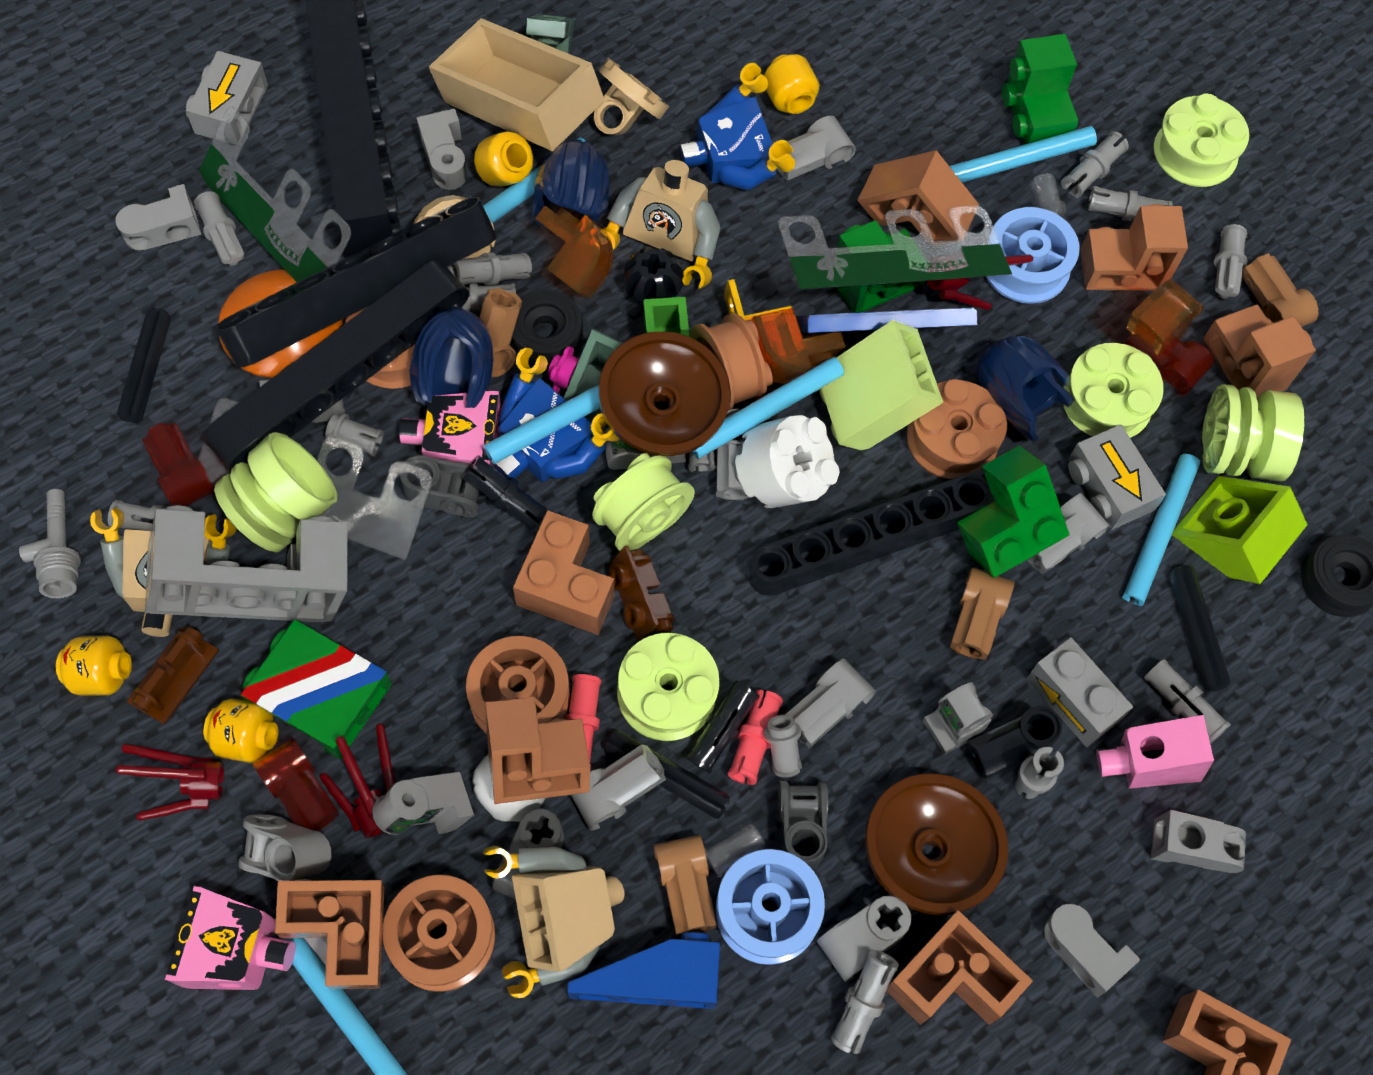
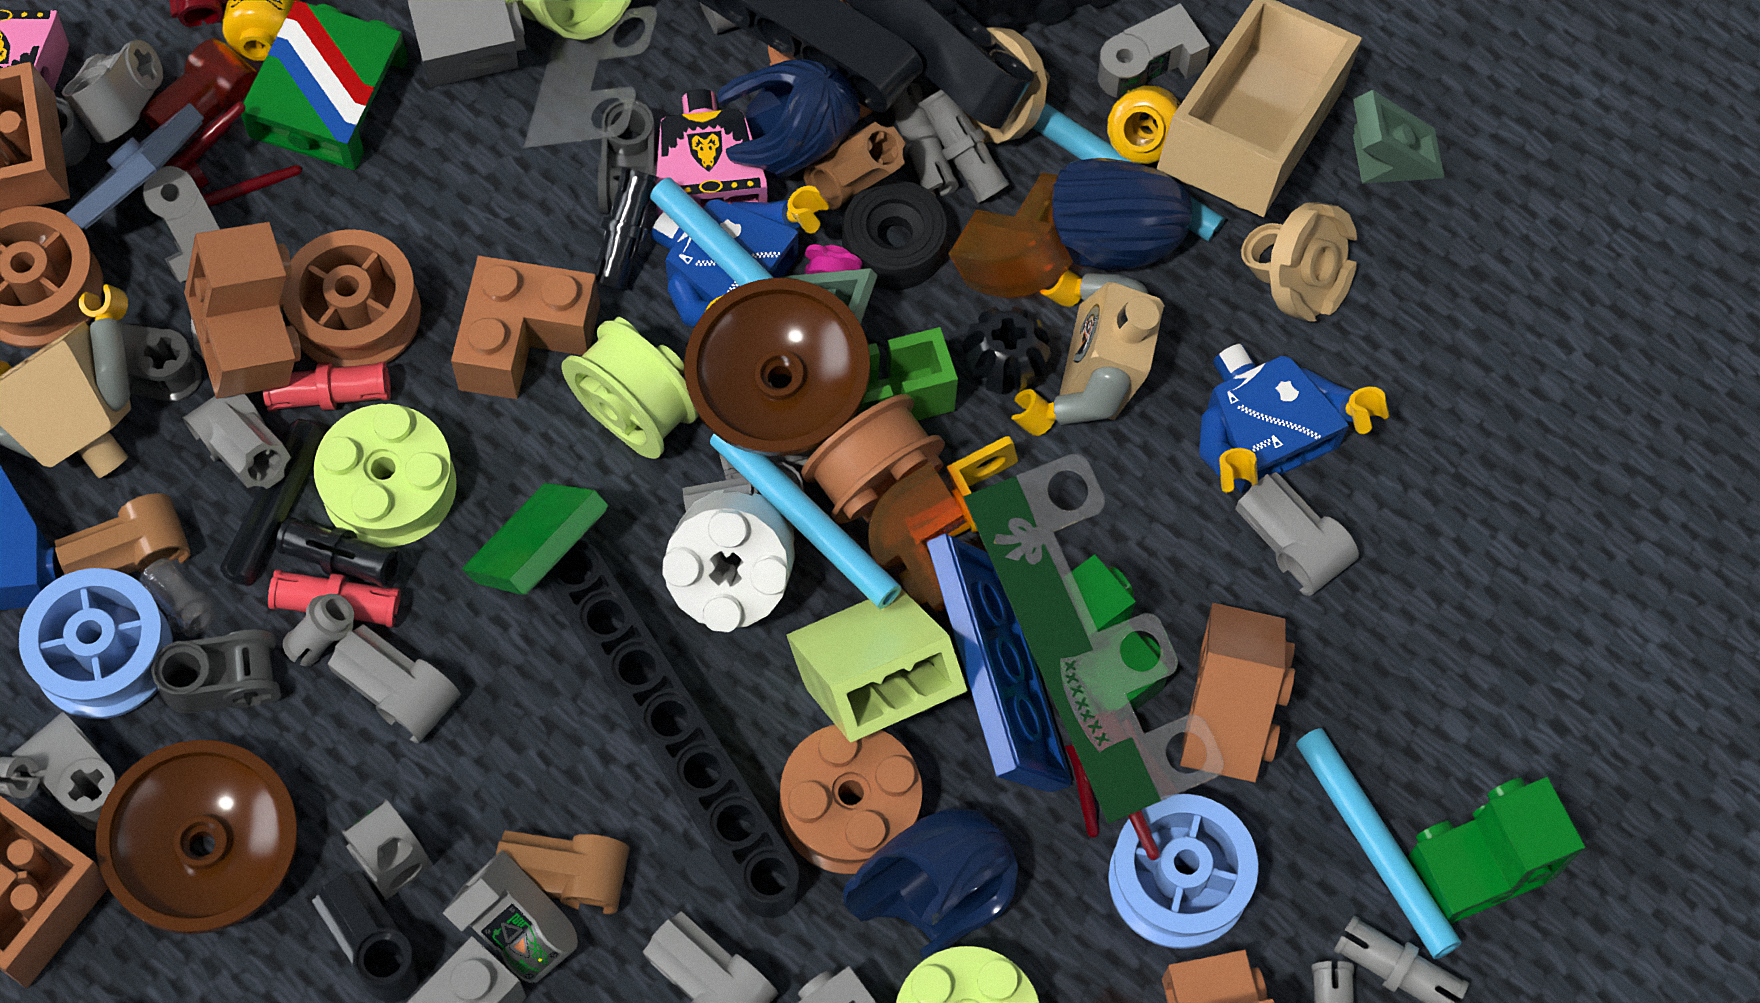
camera: 80 degrees right, 0 degrees up
(354, 432) = (688, 35): light grey pin -> none
(371, 829) = (134, 165): none -> sand blue plate
(633, 578) = (497, 436): reddish brown hinge -> none
(743, 587) = (535, 538): none -> green tile
(791, 83) = (1403, 480): yellow head -> none
(1020, 519) = (698, 878): green brick -> none
(1023, 640) = (514, 918): none -> light grey leg
(1039, 773) = (307, 956): light grey pin -> none
(1047, 195) = (1306, 897): clear pin -> none

